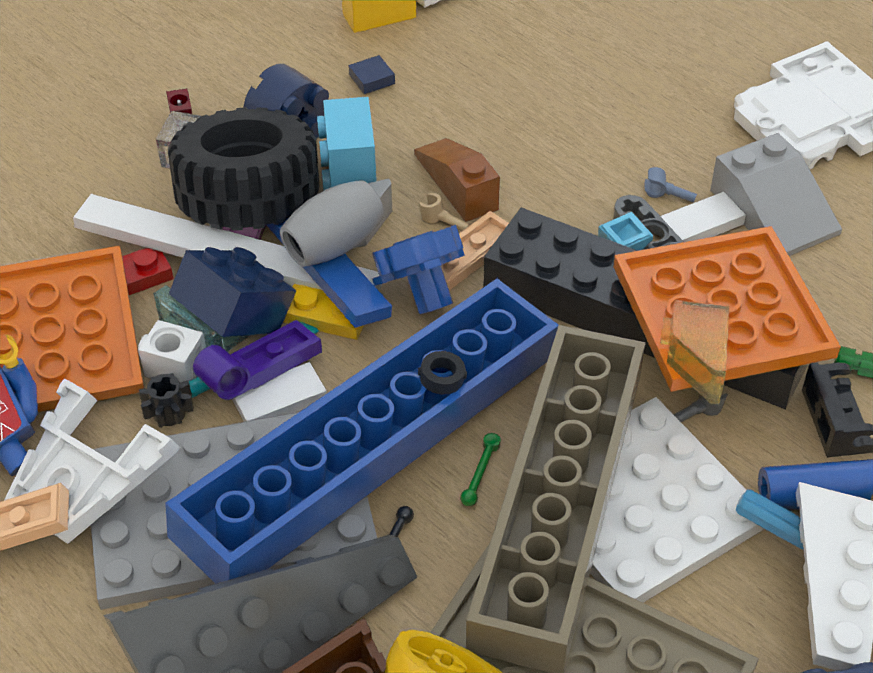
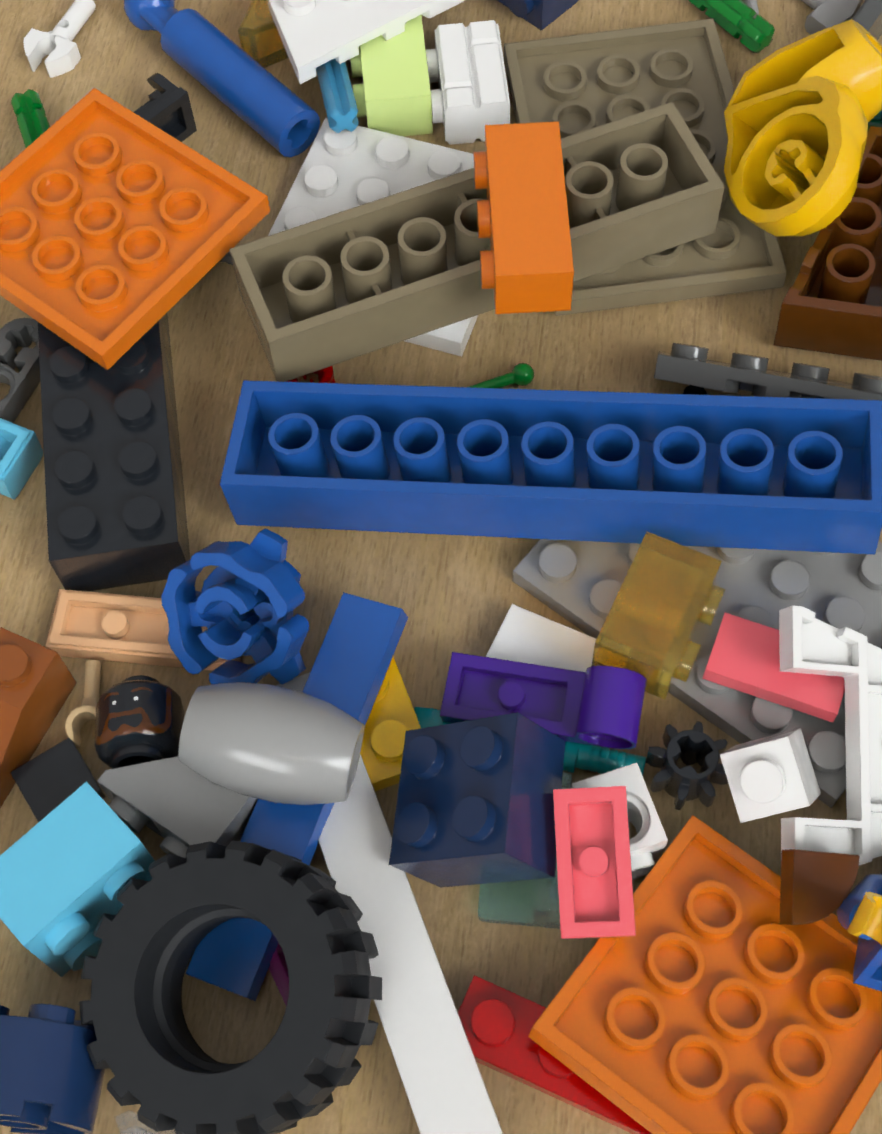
camera: 125 degrees left, 15 degrees up
(54, 379) = (814, 884): none -> reddish brown tile
(118, 411) = (770, 775): none -> white brick
(156, 304) = (594, 863): none -> coral plate
(191, 457) = (749, 662): none -> coral tile
(237, 410) = (659, 612): none -> clear yellow brick
(408, 214) = (138, 722): none -> black head
(413, 186) = (53, 778): none -> black tile
(438, 384) = (443, 432): black piece -> none
(526, 470) = (524, 218): none -> orange brick
(698, 345) = (215, 167): clear yellow slope -> none
(738, 613) = (470, 80): none -> white brick
(769, 573) = (395, 82): none -> yellowish green brick

